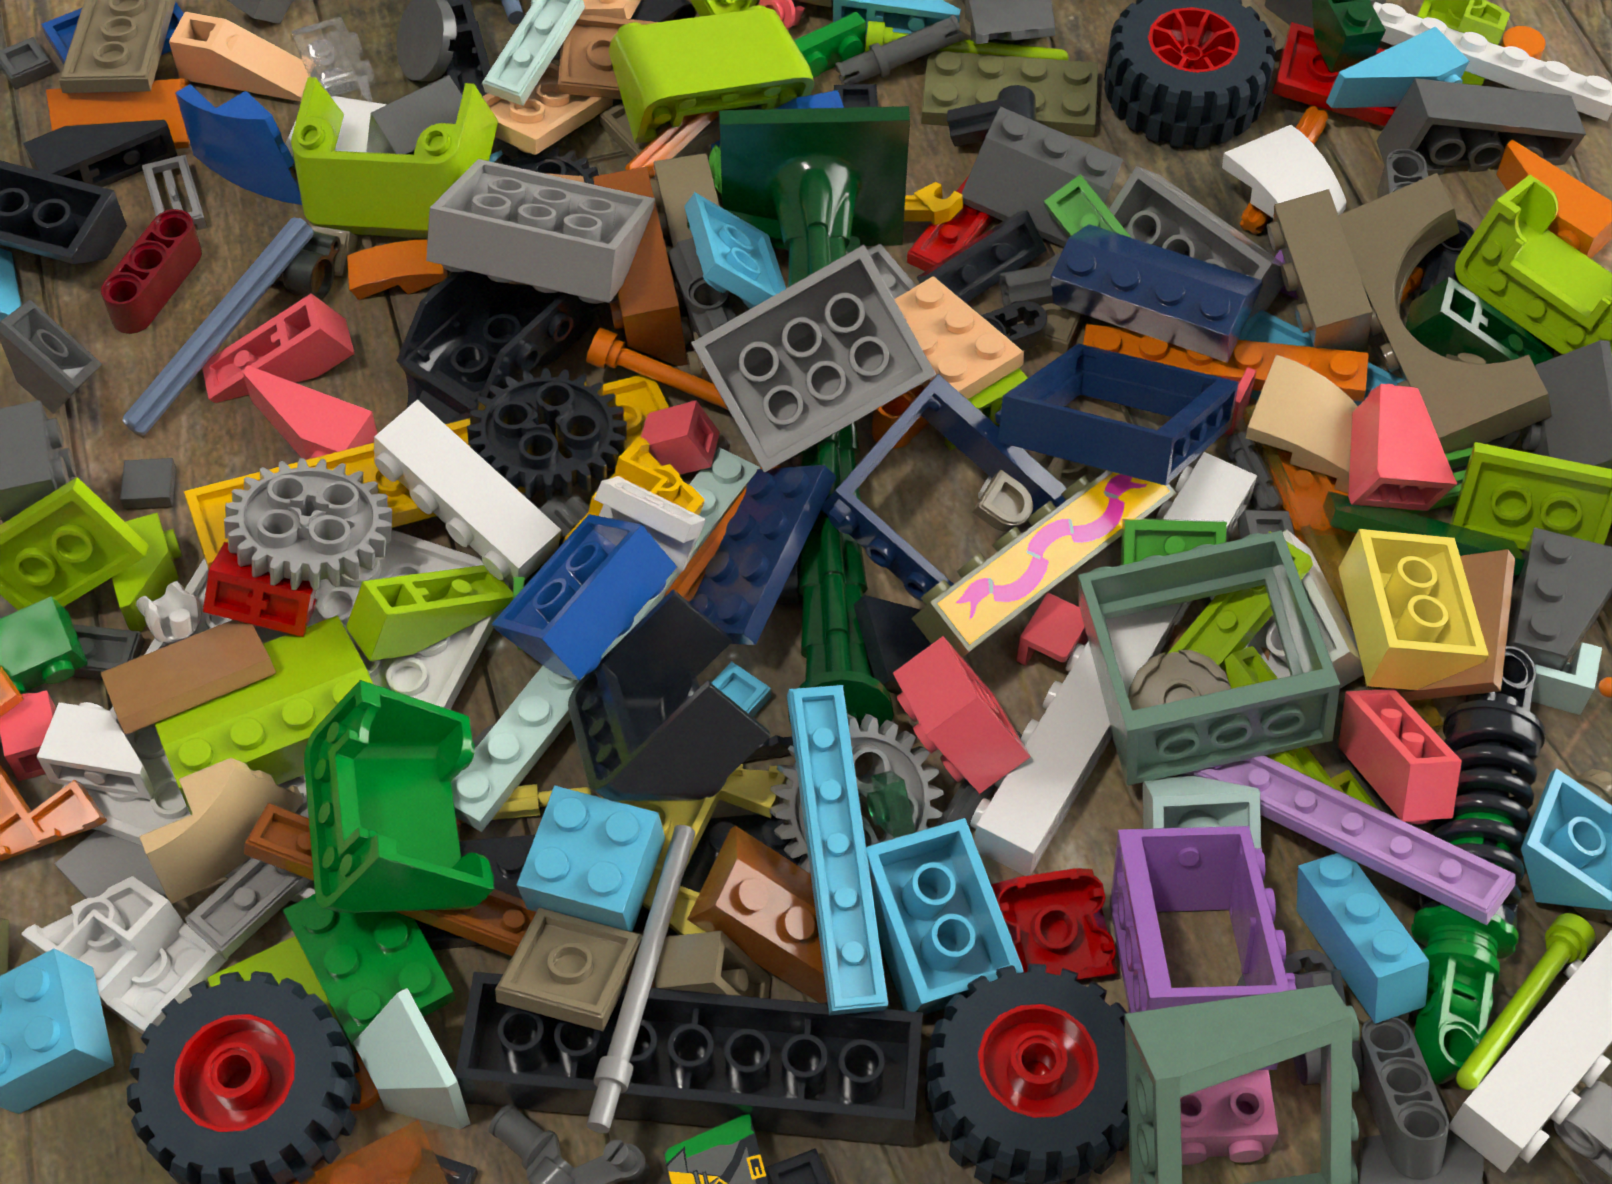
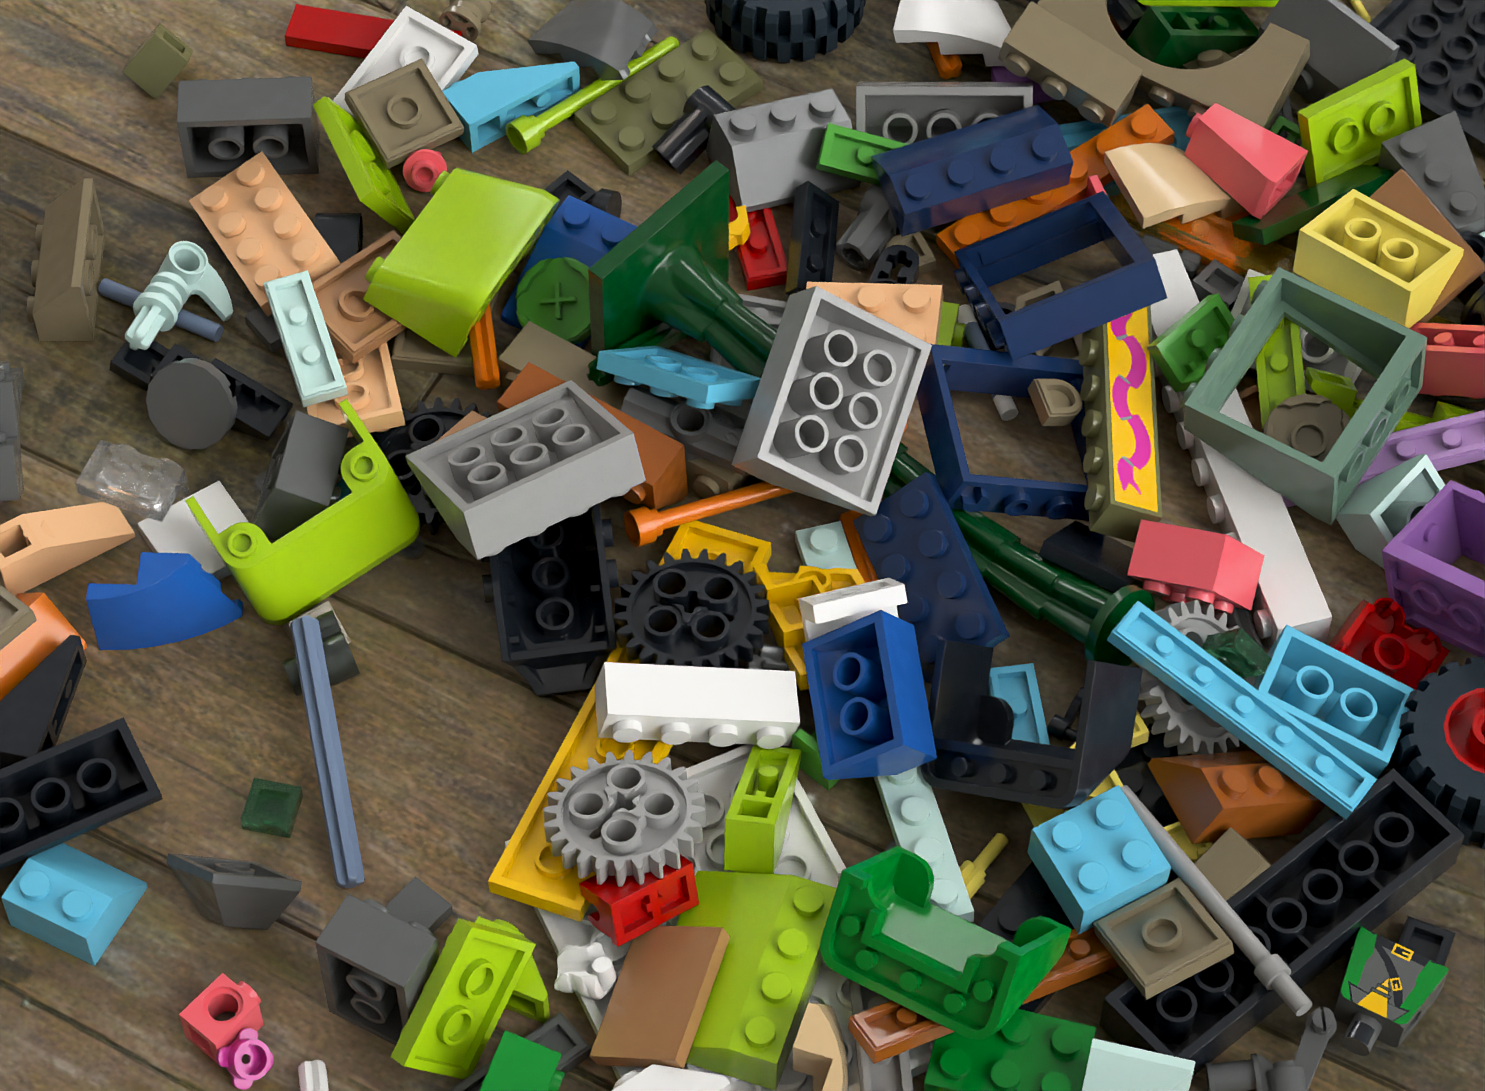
camera: 45 degrees left, 0 degrees up
(148, 335) = (271, 808): none -> clear green plate
(151, 271) = (207, 739): dark red beam -> none
(165, 166) = (127, 707): light grey tile -> none
(292, 345) = (394, 735): coral slope -> none
(307, 418) = (489, 762): coral slope -> none
(393, 265) = (390, 597): orange slope -> none
(681, 437) = (771, 541): coral panel -> none
(833, 43) = (505, 153): green plate -> none
(883, 58) = (553, 144): dark grey pin -> none
(1052, 630) = (1177, 463): coral panel -> none

